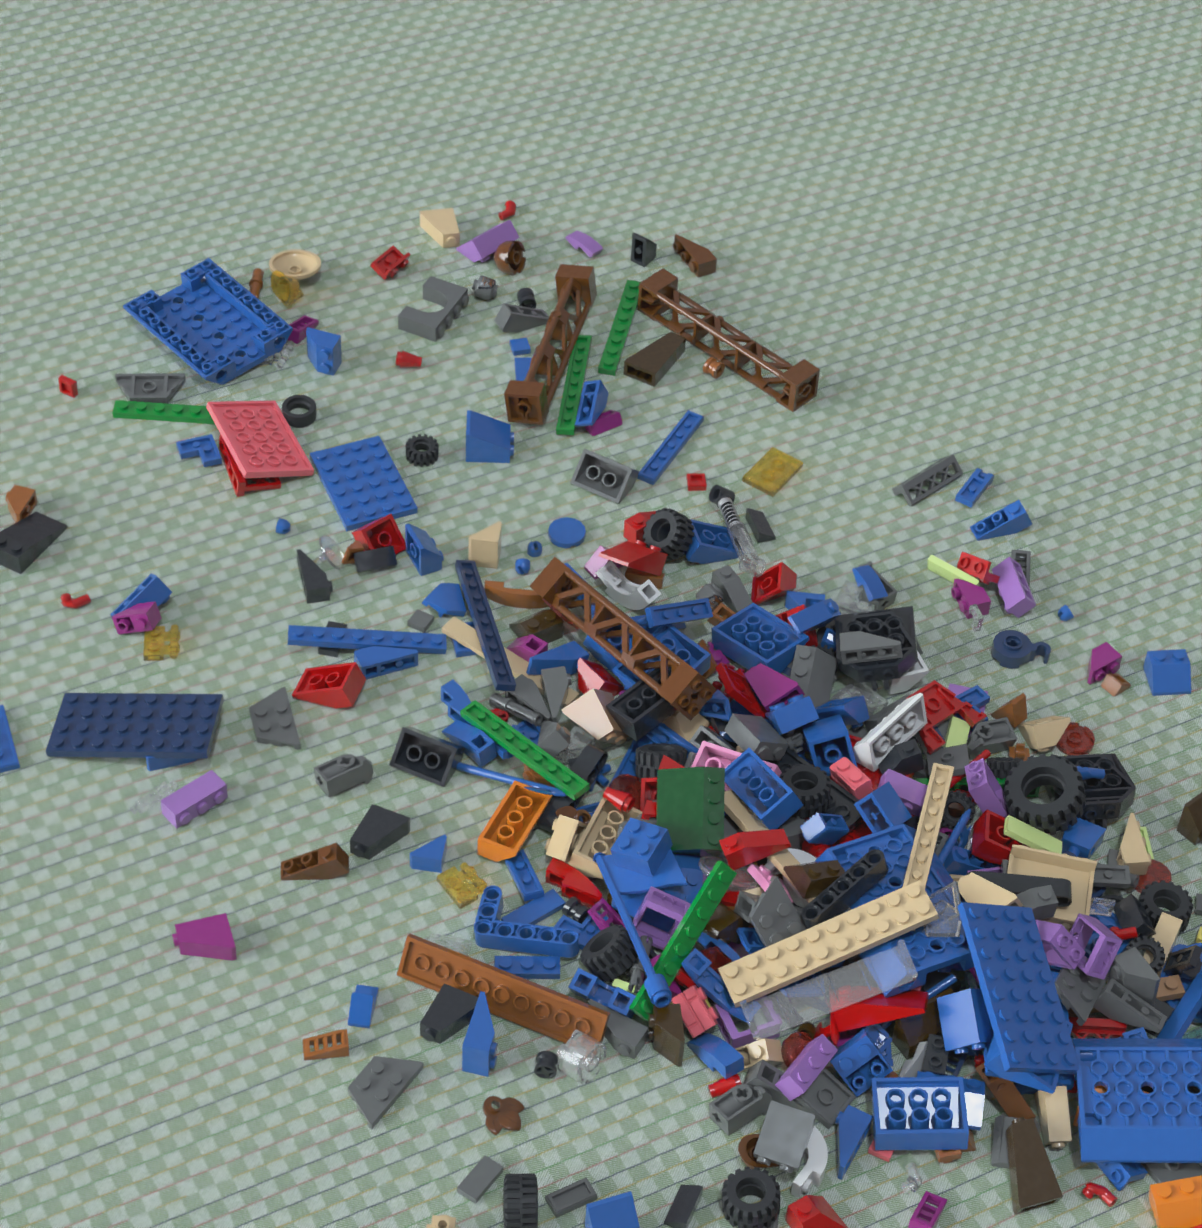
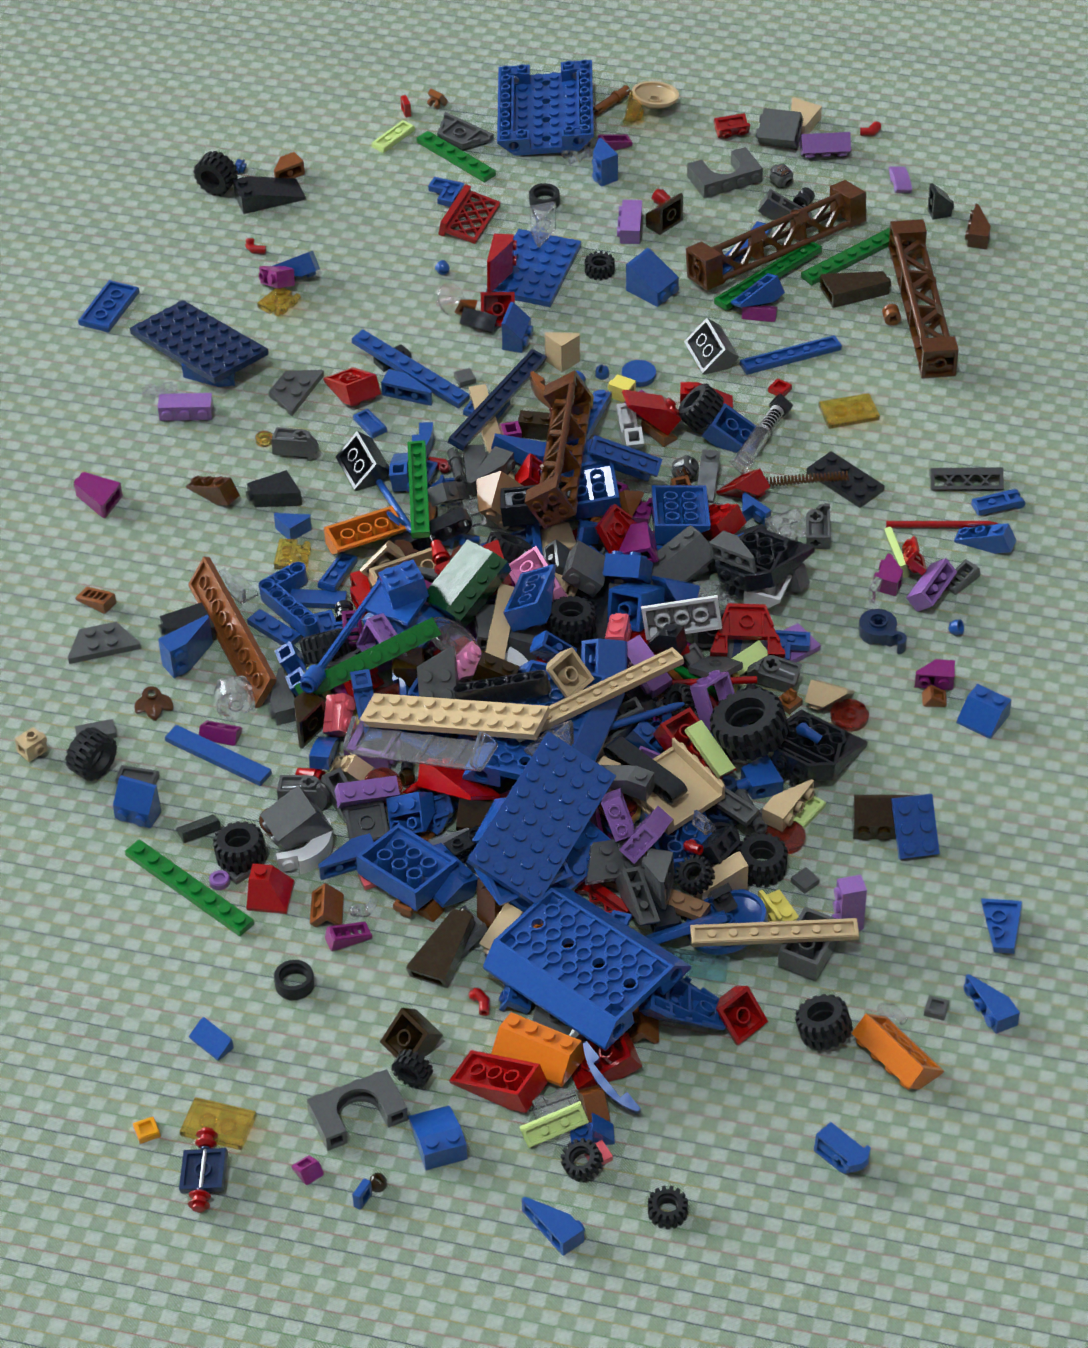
camera: 45 degrees right, 0 degrees up
(85, 423) = (393, 136): none -> yellowish green tile
(89, 363) = (437, 98): none -> dark orange tile
(260, 439) = (489, 199): coral plate -> none
(302, 786) = (263, 438): none -> clear yellow tile
(313, 579) = (419, 313): black slope -> none
(339, 435) = (542, 221): none -> clear slope
(346, 489) = (500, 259): none -> slope
(362, 1006) = (144, 589): blue slope -> none
(384, 714) = (369, 423): none -> blue tile
(403, 395) = (630, 222): none -> medium lavender brick
(428, 372) = (665, 215): none -> dark brown slope
(440, 244) = (779, 128): none -> dark grey brick
(446, 599) = (495, 371): blue slope -> none
(510, 257) = (826, 162): reddish brown cylinder -> none
(546, 1064) = (208, 691): black wheel -> none
(573, 553) = (619, 384): none -> light yellow brick
(594, 1100) = (220, 732): none -> magenta slope
(619, 1124) = (218, 755): none -> blue tile
(752, 846) = (475, 625): red slope -> none
(759, 525) = (789, 441): black slope -> none
(797, 563) = (816, 479): none -> reddish brown piece
(815, 616) = (729, 514): blue slope -> none
(838, 534) = (860, 487): none -> black plate
(867, 577) = (808, 517): blue slope -> none
(877, 834) = (569, 672): none -> tan slope
(879, 1201) = (326, 905): none -> dark orange panel
(979, 890) = (602, 750): tan slope -> none
(981, 514) = (937, 524): none -> red piece
(1014, 710) = (818, 666): dark orange slope -> none

